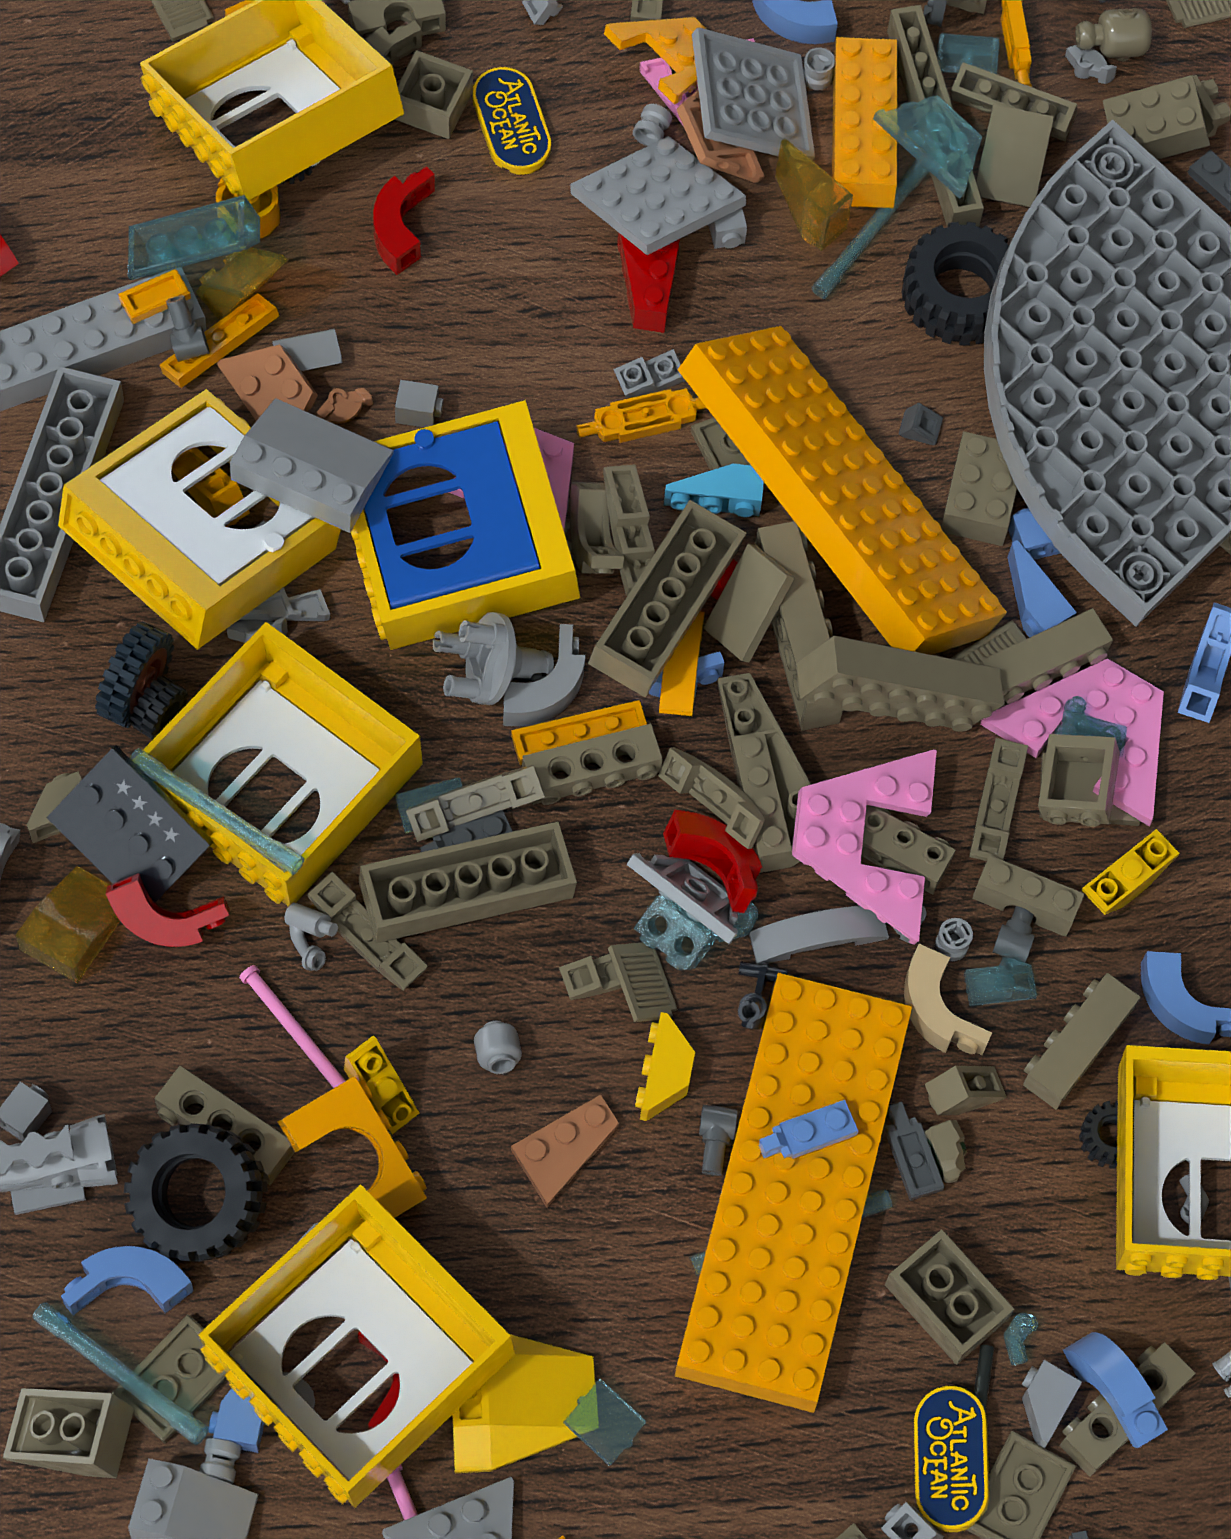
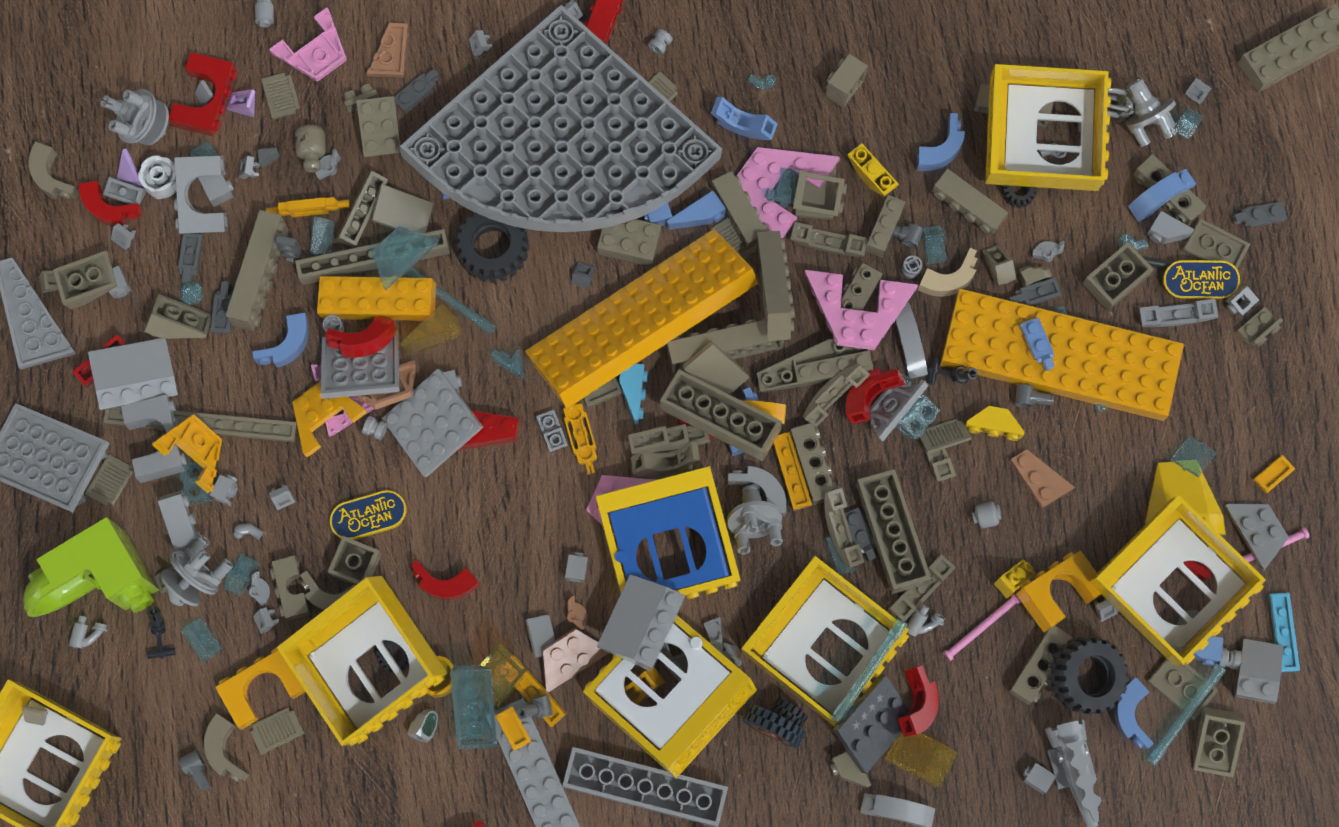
camera: 85 degrees left, 10 degrees up
(172, 190) = (424, 726): none -> light grey rock
(764, 310) = (512, 365): none -> clear light blue slope
(791, 105) = (363, 343): none -> red arch
(880, 1408) = (1179, 314): none -> light grey slope
(998, 1182) = (1048, 250): none -> light grey piece

